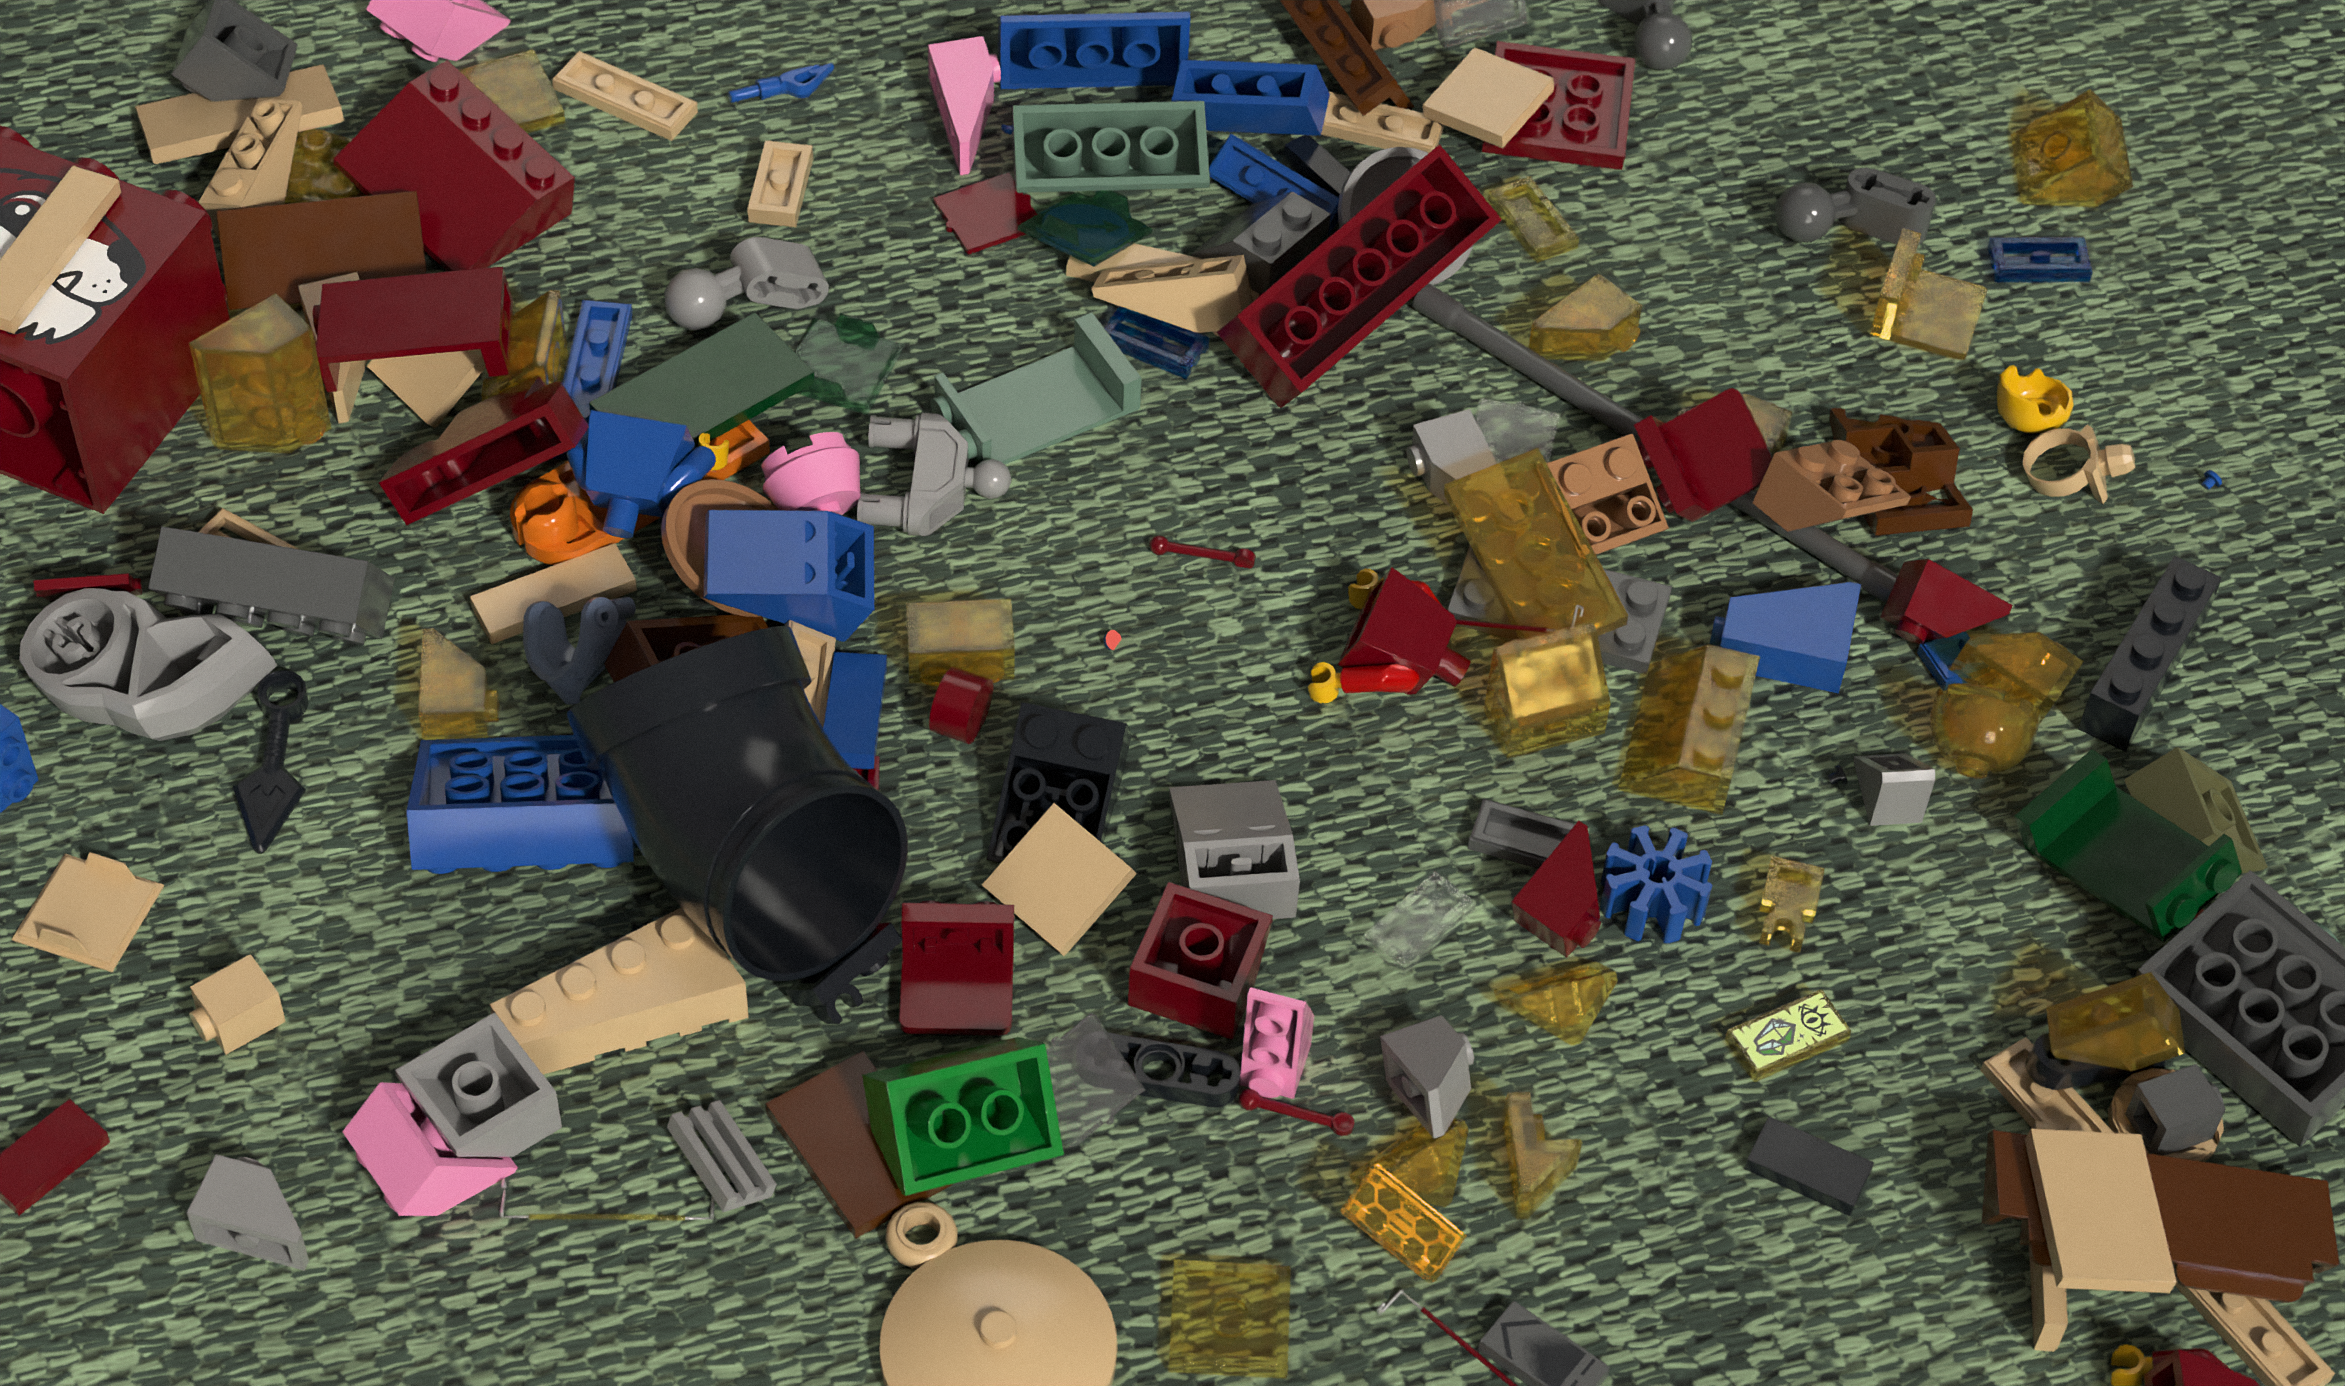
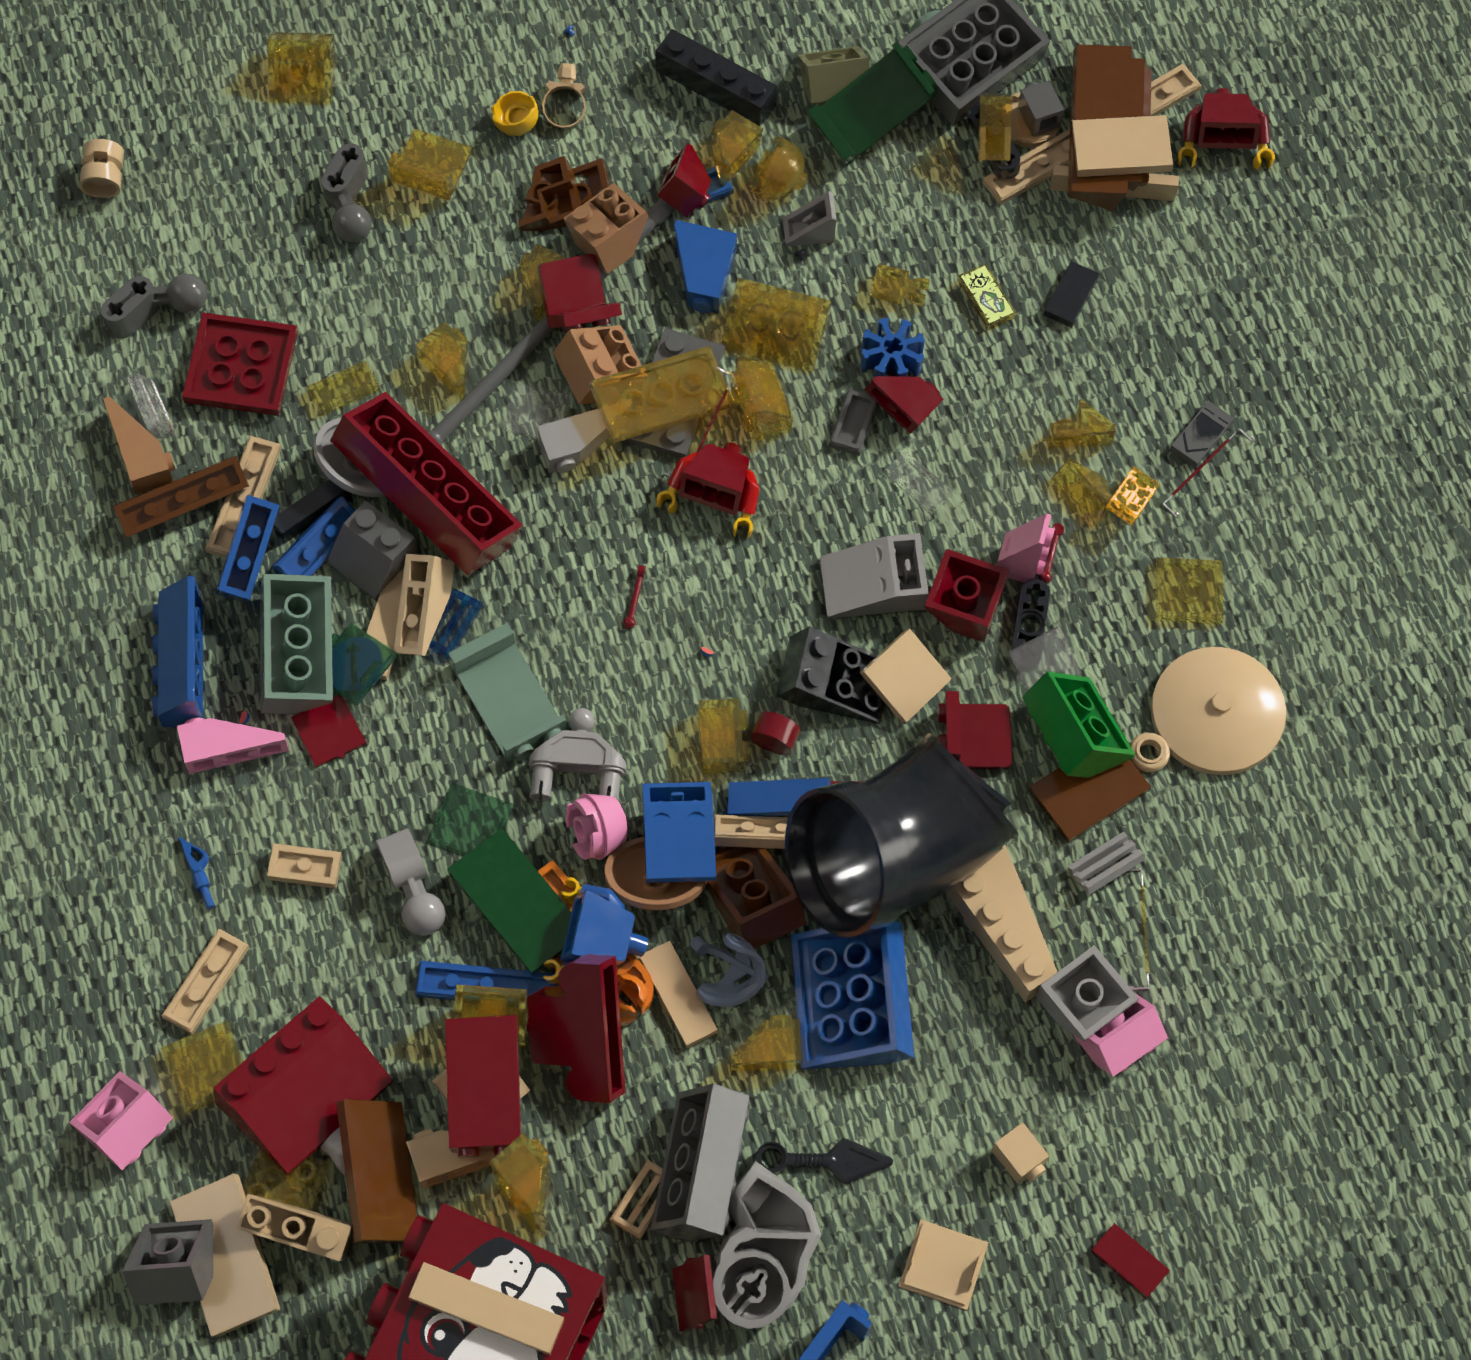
camera: 90 degrees left, 15 degrees up
(246, 1213) = (1166, 1128): light grey slope -> none
(1429, 1071) = (1036, 475): light grey slope -> none
(1488, 97) = (244, 402): tan tile -> none
(1562, 1001) = (967, 409): clear yellow slope -> none
(2040, 265) = (385, 120): clear blue tile -> none

